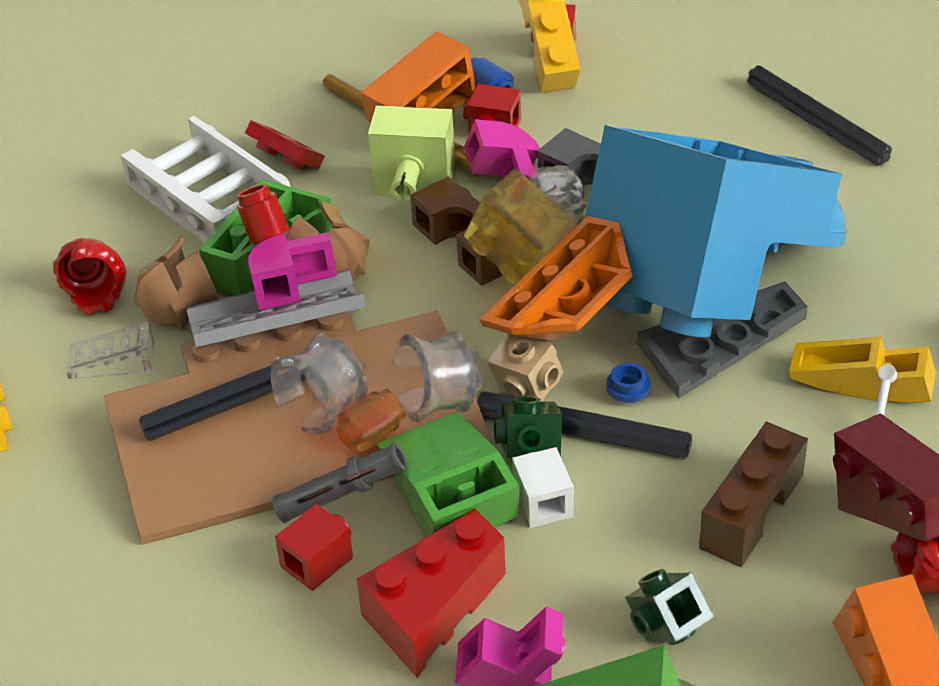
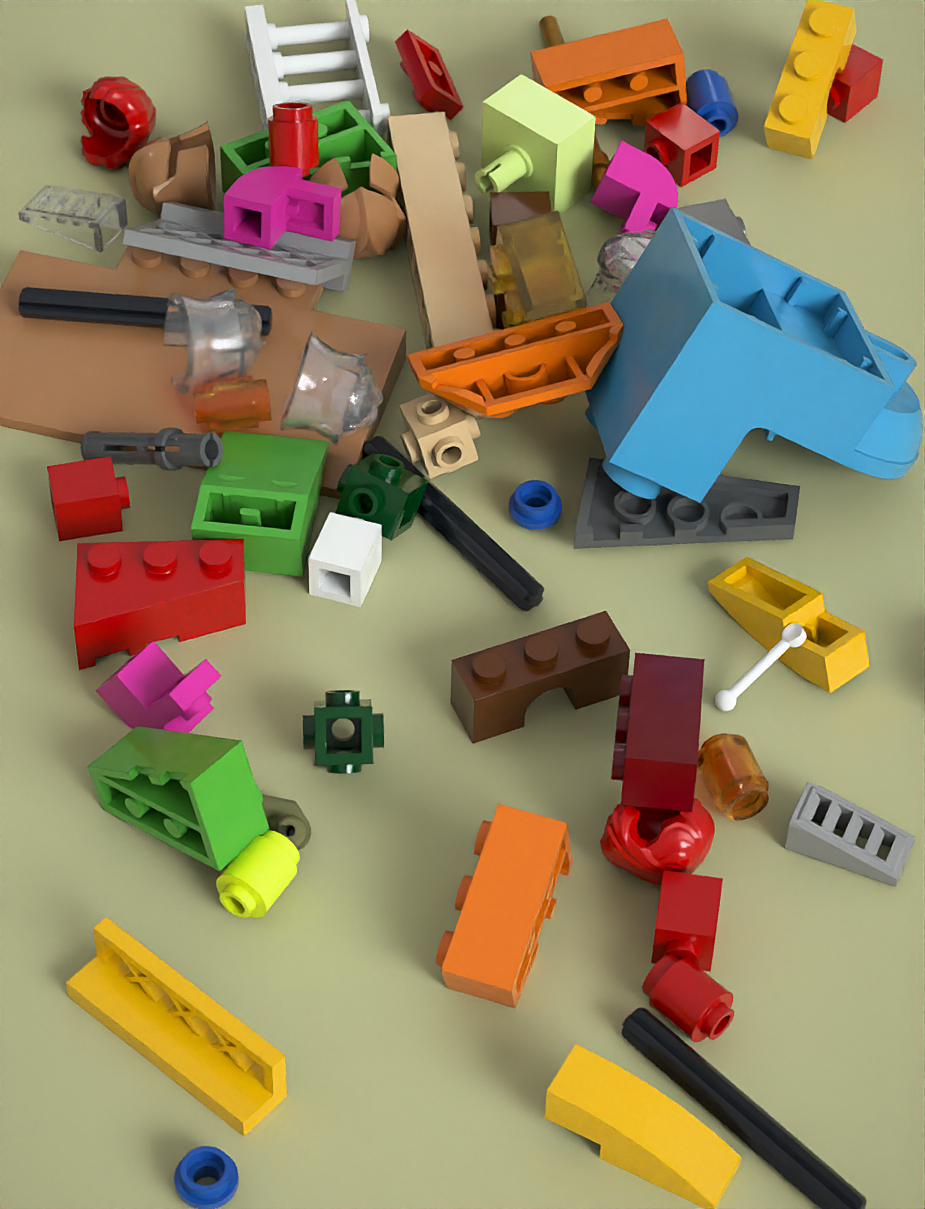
camera: 30 degrees right, 5 degrees up
(412, 254) = (438, 232): none -> tan brick

